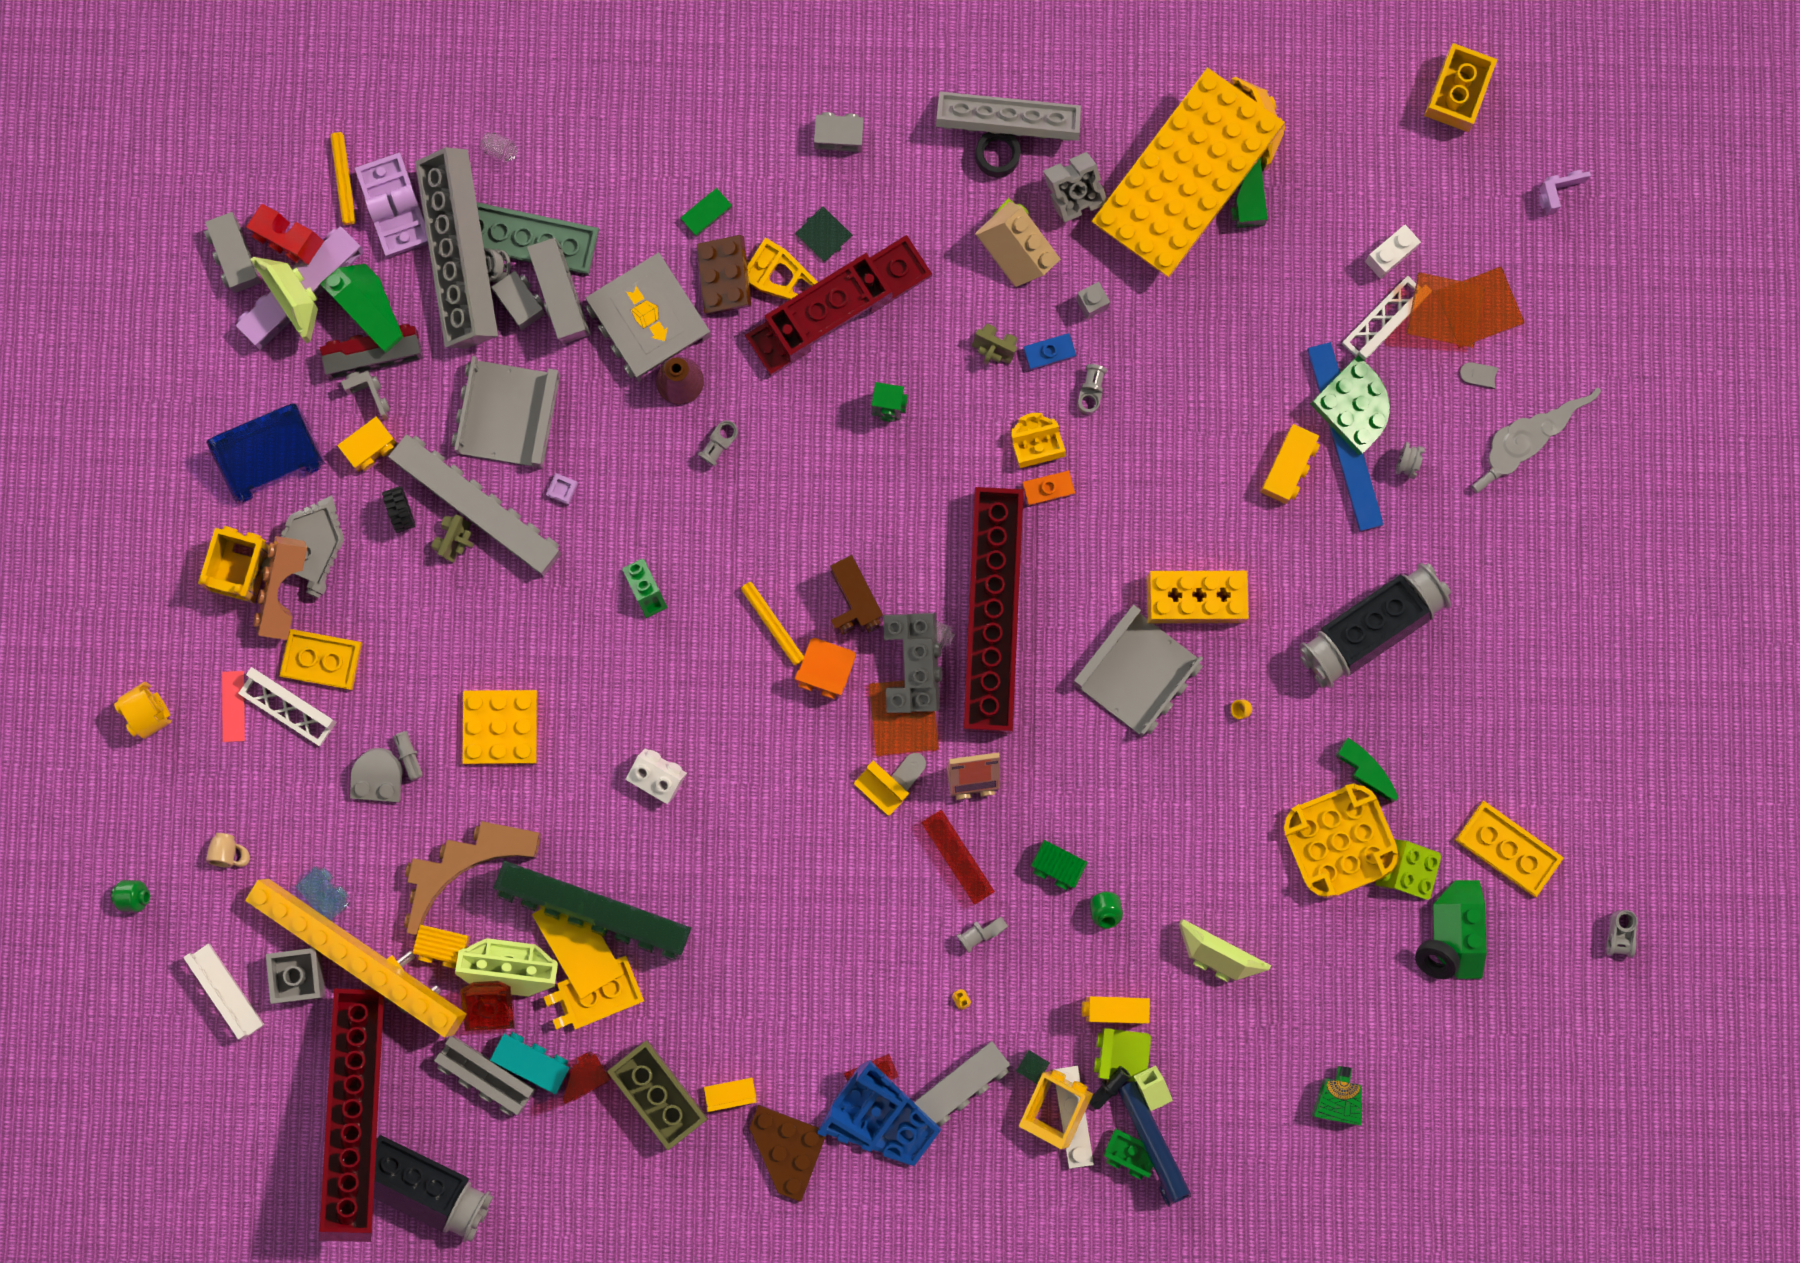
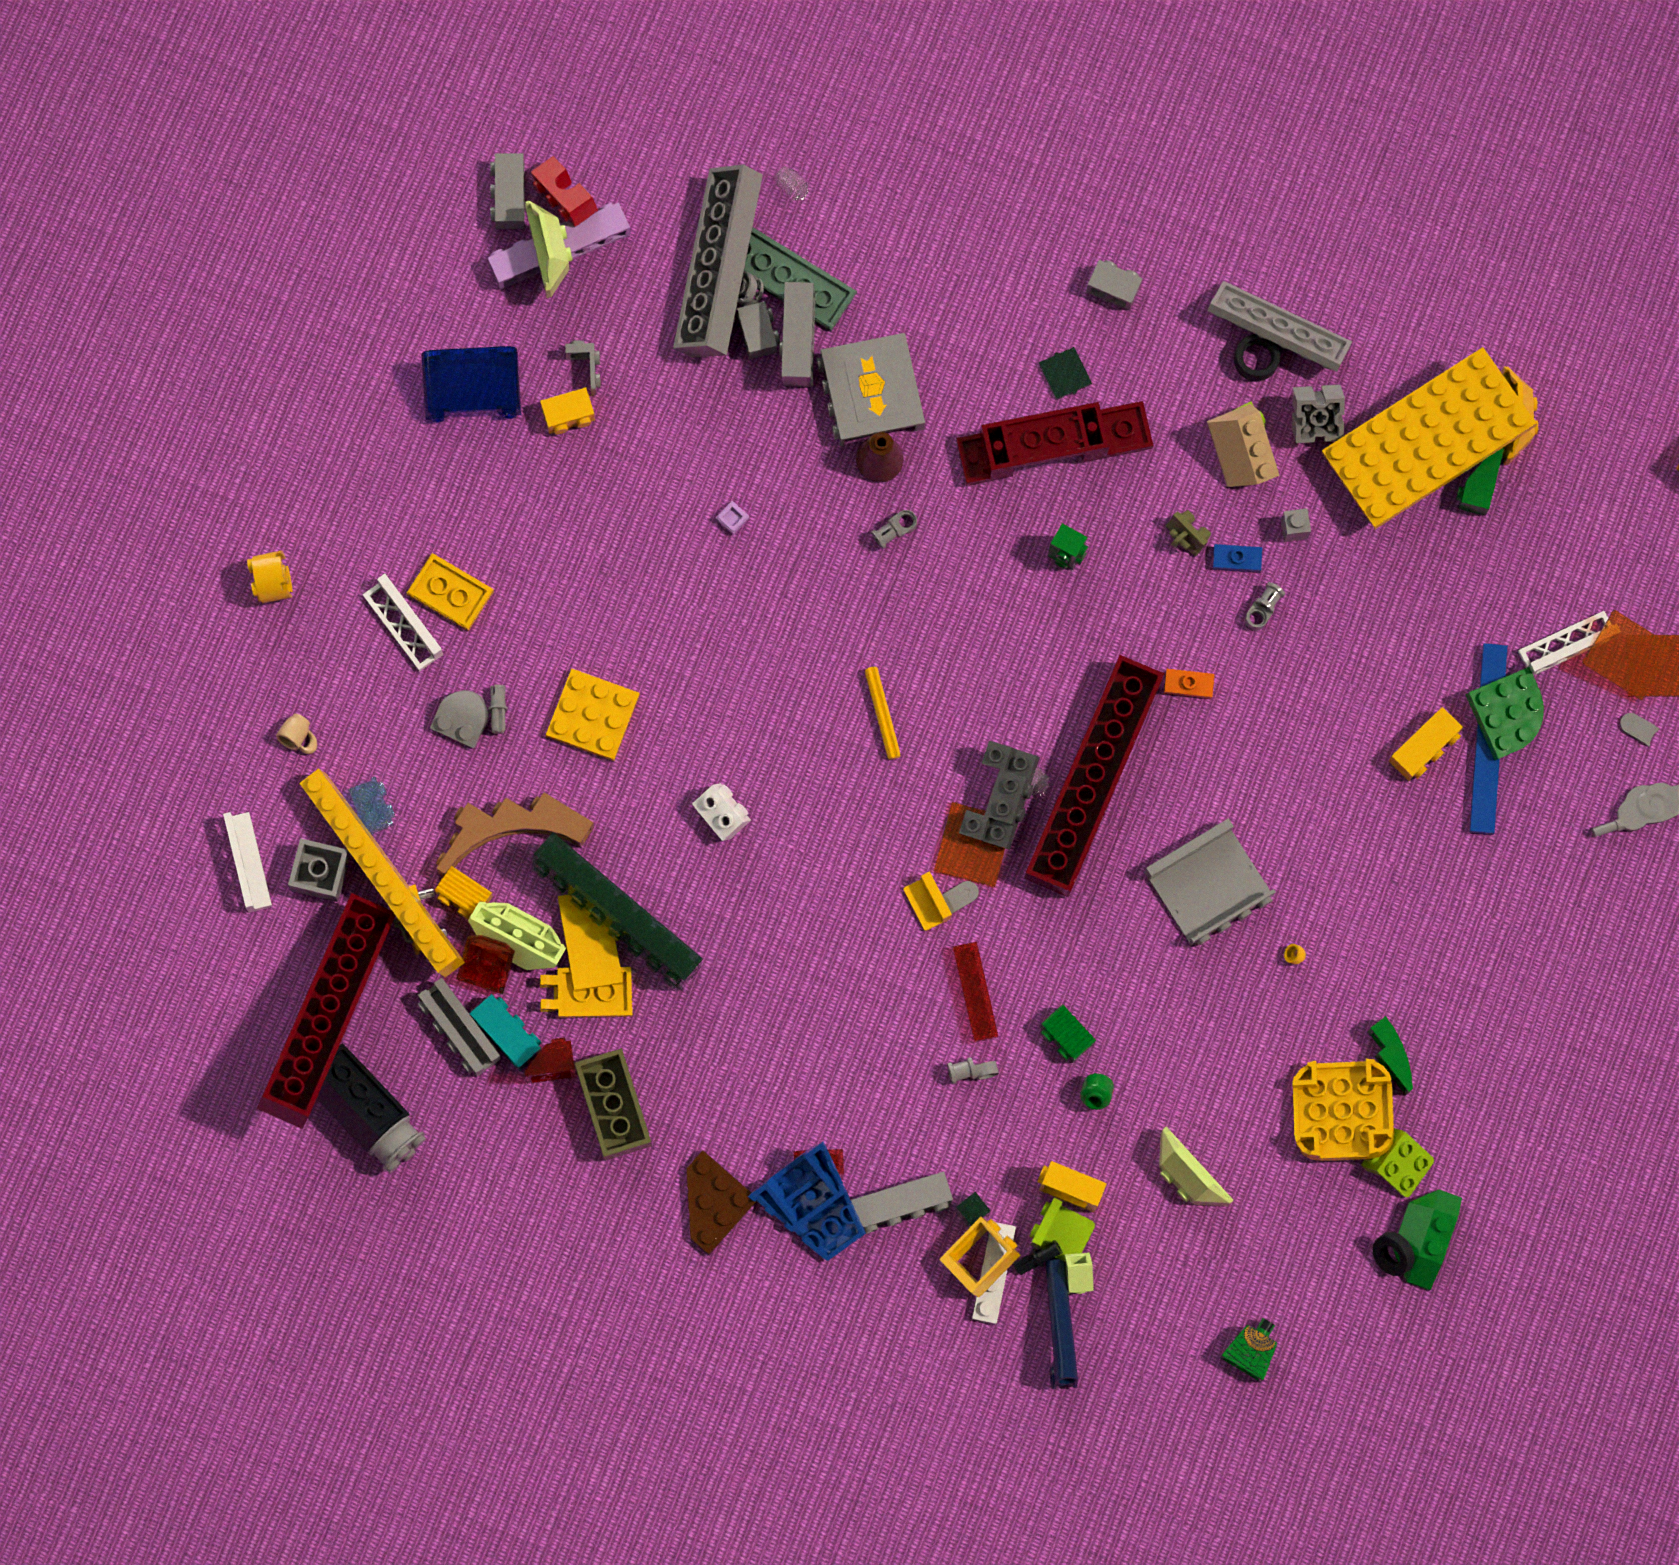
camera: 20 degrees right, 5 degrees down
(130, 896) = (194, 741): green head -> none
(232, 572) = (400, 484): yellow container -> none
(233, 706) = (352, 605): coral sticker -> none
(286, 558) = (455, 485): nougat arch -> none
(323, 539) = (478, 483): light grey shield -> none
(343, 178) = (636, 160): yellow axle -> none
(363, 354) = (603, 327): dark grey piece -> none
(365, 301) = (615, 280): green wedge -> none
(392, 204) = (673, 201): lavender plate -> none
(398, 509) = (574, 480): black tyre -> none
(455, 539) = (616, 527): olive hips -> none
(475, 505) = (646, 503): light grey brick -> none
(506, 413) = (706, 429): light grey panel -> none
(644, 588) = (775, 637): green bracket -> none
(706, 212) = (962, 313): green tile -> none
(724, 274) = (957, 376): reddish brown plate -> none
(730, 1094) = (680, 1131): yellow panel -> none
(764, 264) = (997, 381): yellow plate -> none
(825, 668) = (916, 772): orange bracket -> none
(858, 597) = (972, 725): reddish brown brick -> none
(961, 999) = (929, 1125): yellow rock -> none
(974, 775) = (1019, 917): slope -> none
(1037, 440) = (1194, 634): yellow slope -> none
(1129, 1152) = (1033, 1324): green bracket -> none
(1186, 608) = (1278, 841): yellow brick -> none
(1375, 625) = (1450, 921): black brick -> none
(1392, 251) = (1597, 583): white brick -> none
(1410, 460) = (1541, 782): light grey wheel -> none
(1509, 849) = (1501, 1179): yellow tile -> none
(1624, 936) = (1579, 1299): light grey piece -> none

